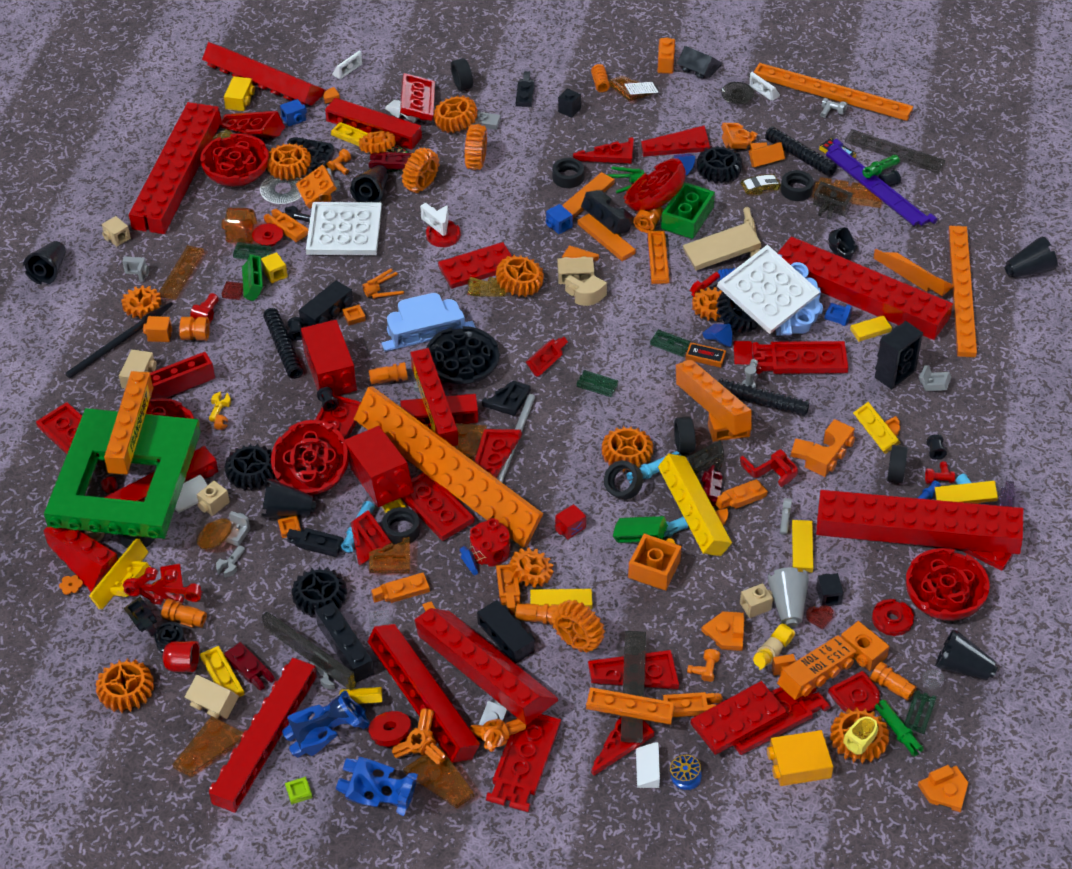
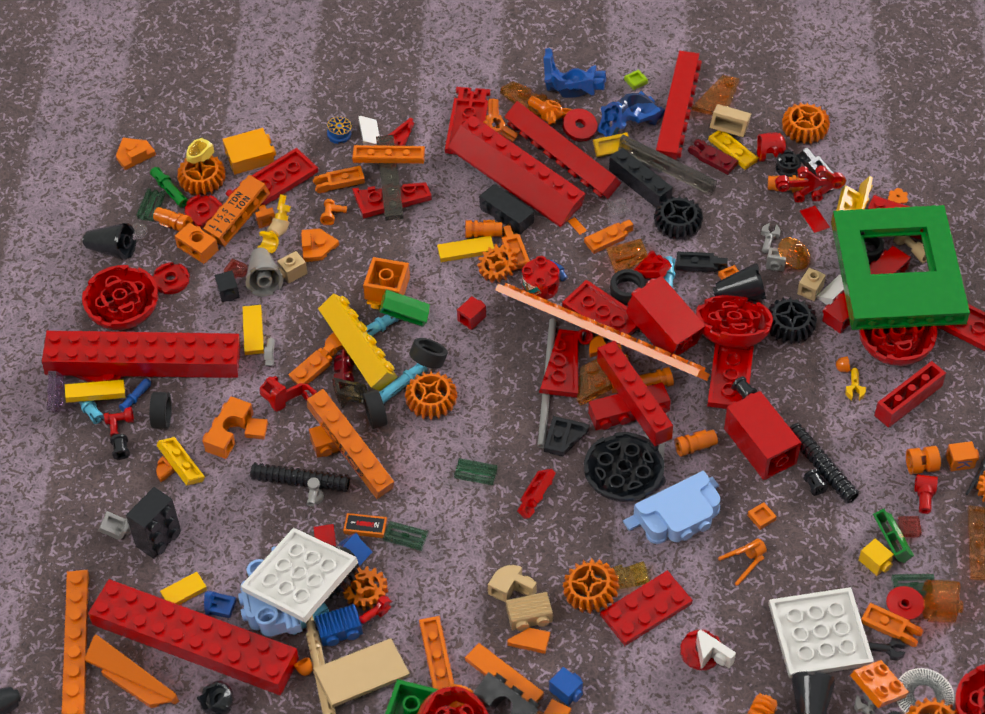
camera: 170 degrees right, 5 degrees up
(128, 423) = (914, 291): orange brick -> none
(137, 361) = (956, 404): tan piece -> none
(326, 304) = (794, 514): black brick -> none
(578, 625) = (443, 205): orange gear -> none
(738, 717) = (300, 166): red plate -> none
(801, 357) = (256, 533): red hinge -> none

